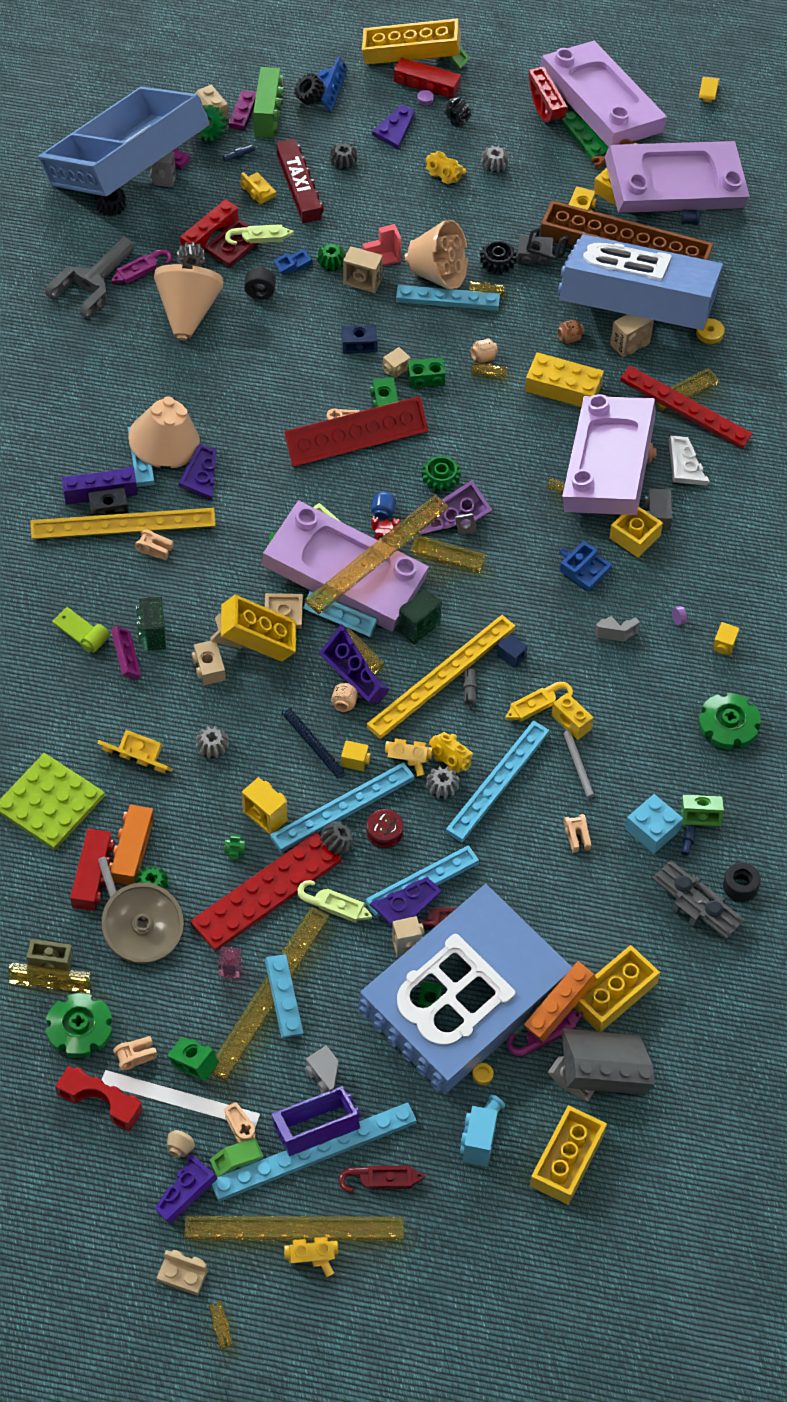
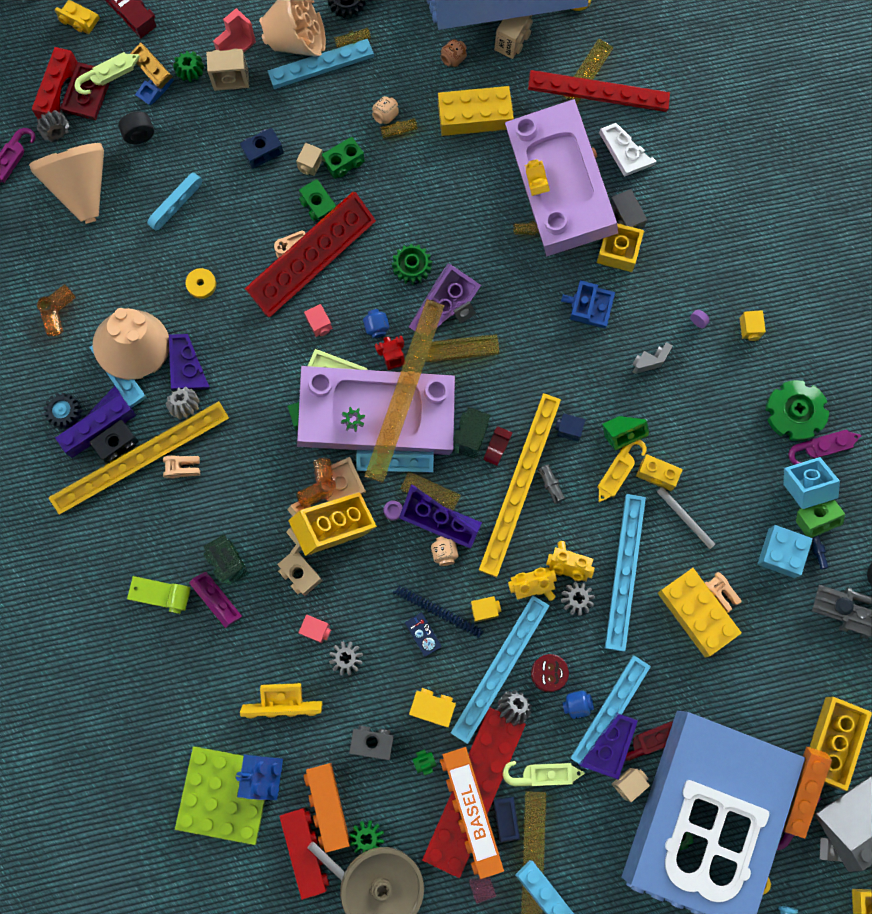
camera: 25 degrees left, 20 degrees up
(78, 462) = (62, 411): none -> black wheel
(87, 794) = (259, 777): none -> blue plate
(112, 386) = (51, 317): none -> clear orange piece
(182, 497) = (182, 403): none -> light grey gear
(197, 709) = (315, 629): none -> coral brick
(202, 823) = (359, 743): none -> dark grey brick
(243, 356) = (174, 201): none -> medium azure beam
(246, 425) = (204, 290): none -> yellow piece
(254, 895) = (473, 813): none -> brick
(270, 597) = (315, 492): none -> clear orange piece
(282, 925) = (506, 819): none -> dark blue tile
(289, 755) = (423, 634): none -> tile
(299, 245) = (151, 66): none -> pearl gold tile
(313, 652) = (392, 510): none -> medium lavender tile
(319, 554) = (350, 414): none -> green gear
(334, 484) = (318, 320): none -> coral brick
(396, 862) = (578, 704): none -> blue head
(438, 638) = (497, 445): none -> dark red leg
(547, 837) = (699, 613): none -> yellow brick
(559, 670) = (624, 431): none -> green slope
(585, 441) = (536, 177): none -> yellow slope
(707, 776) = (811, 483): none -> medium azure brick
(742, 761) = (825, 445): none -> magenta plate

